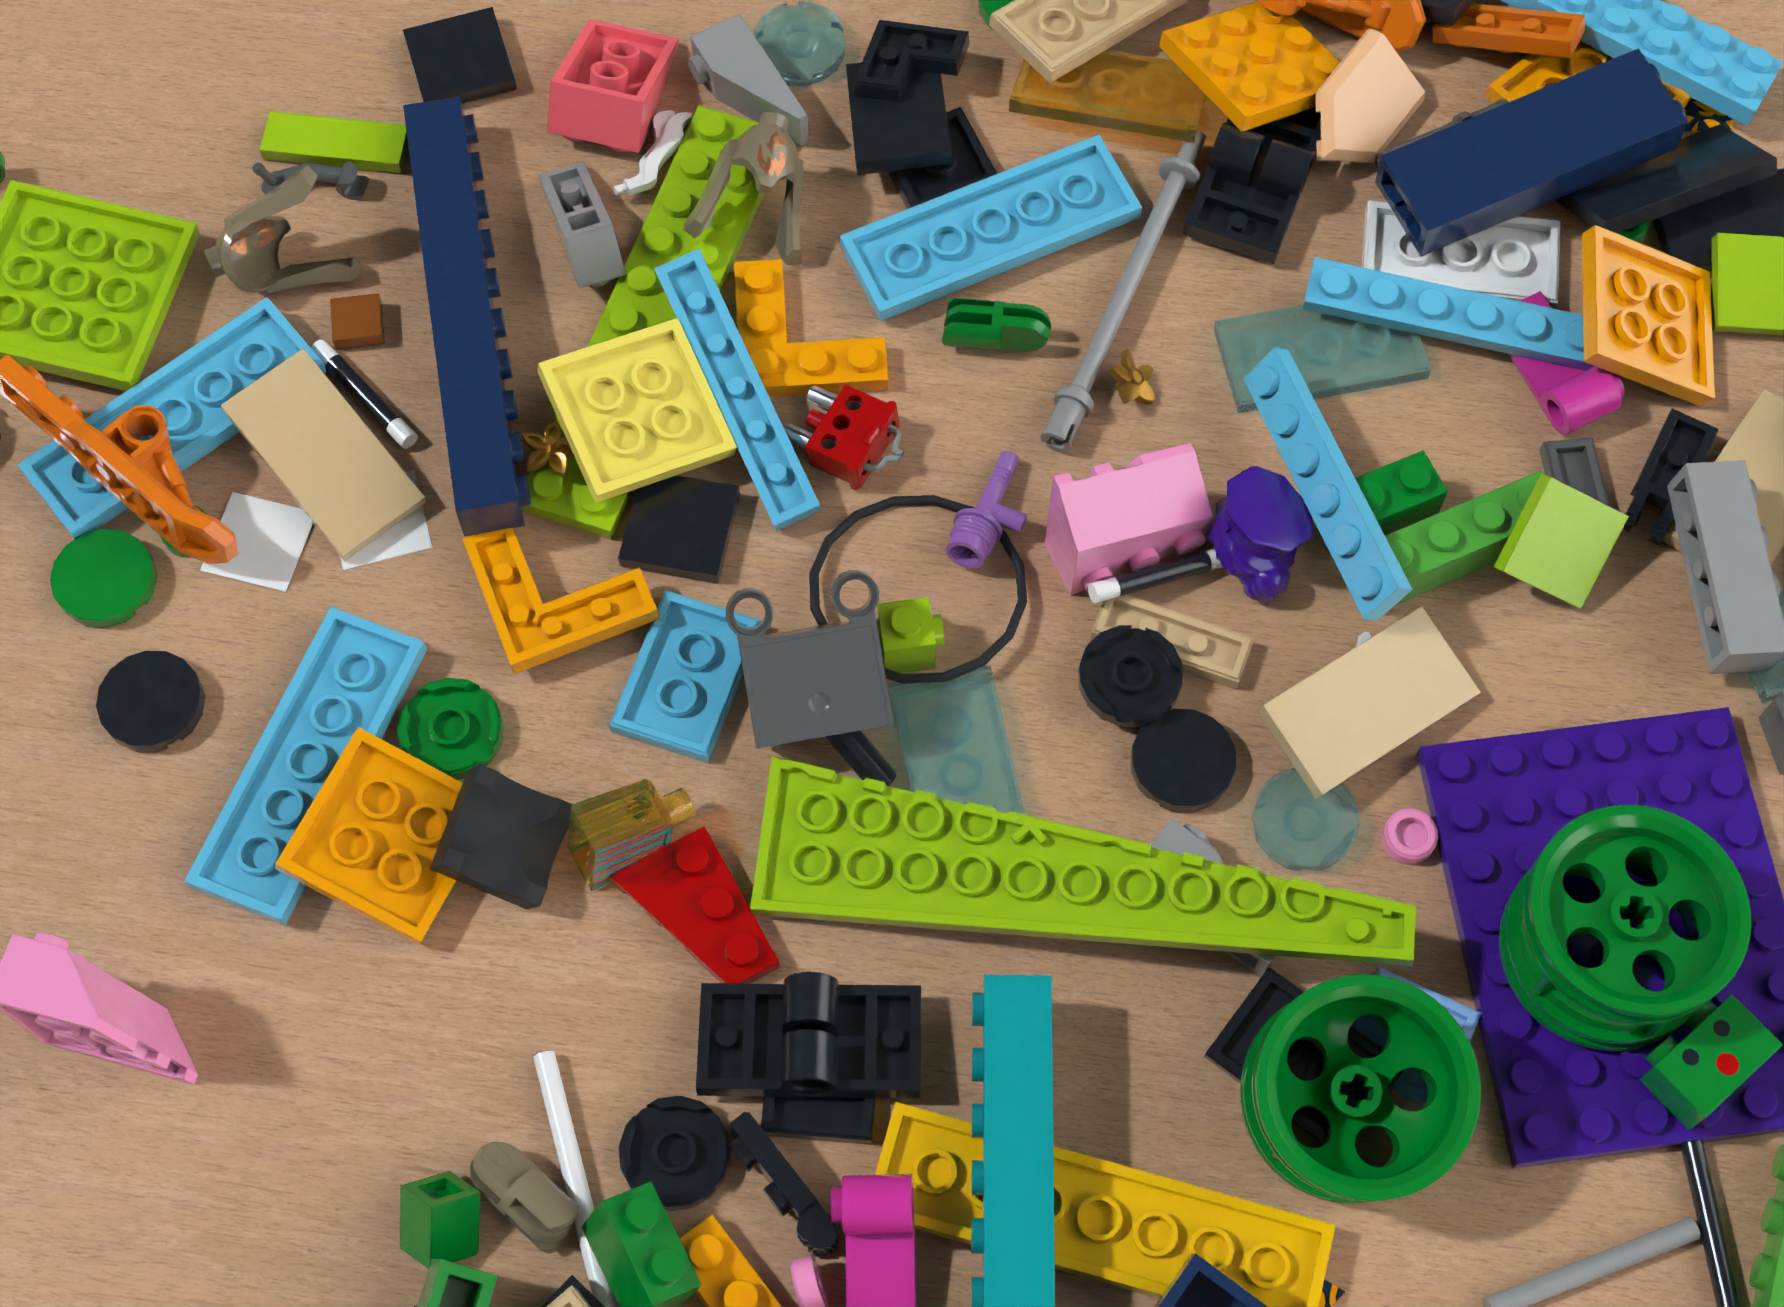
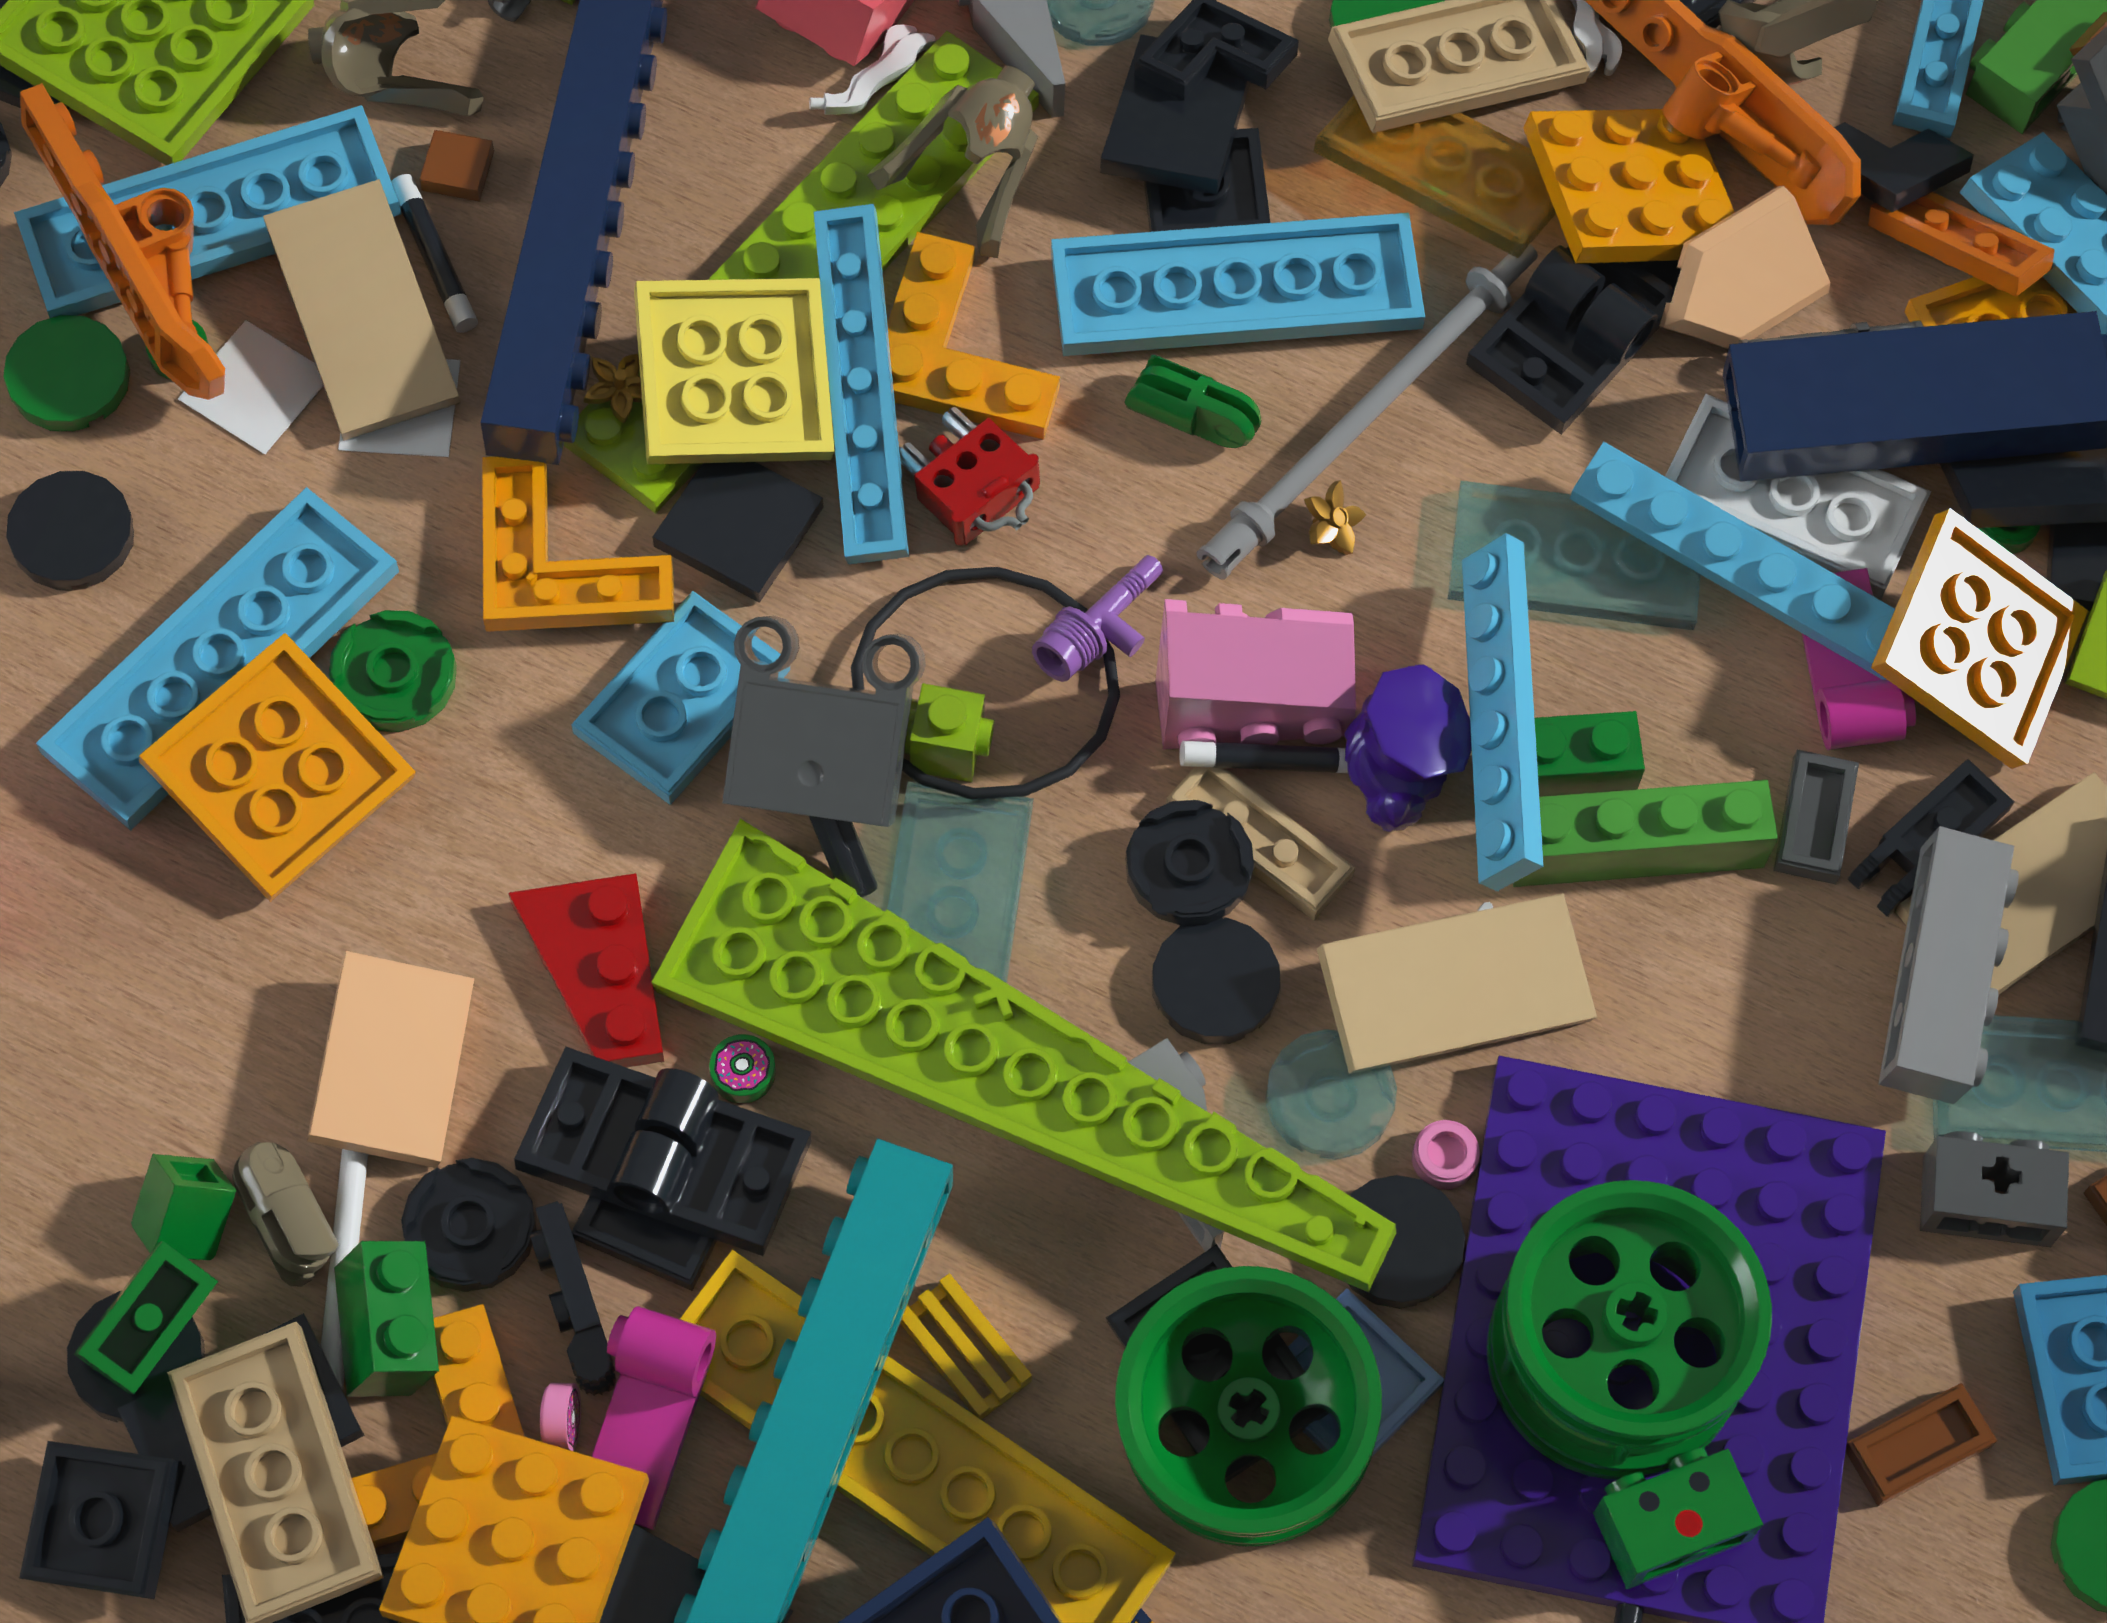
camera: 15 degrees right, 0 degrees up
(502, 837) = (402, 810): black brick -> none
(565, 1041) = (391, 1060): none -> light nougat tile
(582, 225) = (755, 133): light grey slope -> none
(623, 828) = (542, 843): clear yellow torso -> none
(845, 952) = (742, 1068): none -> tile
(1115, 1098) = (930, 1303): none -> yellow tile
(1434, 907) = (1426, 1241): none -> black tile
(1561, 541) = (1757, 870): lime tile -> none

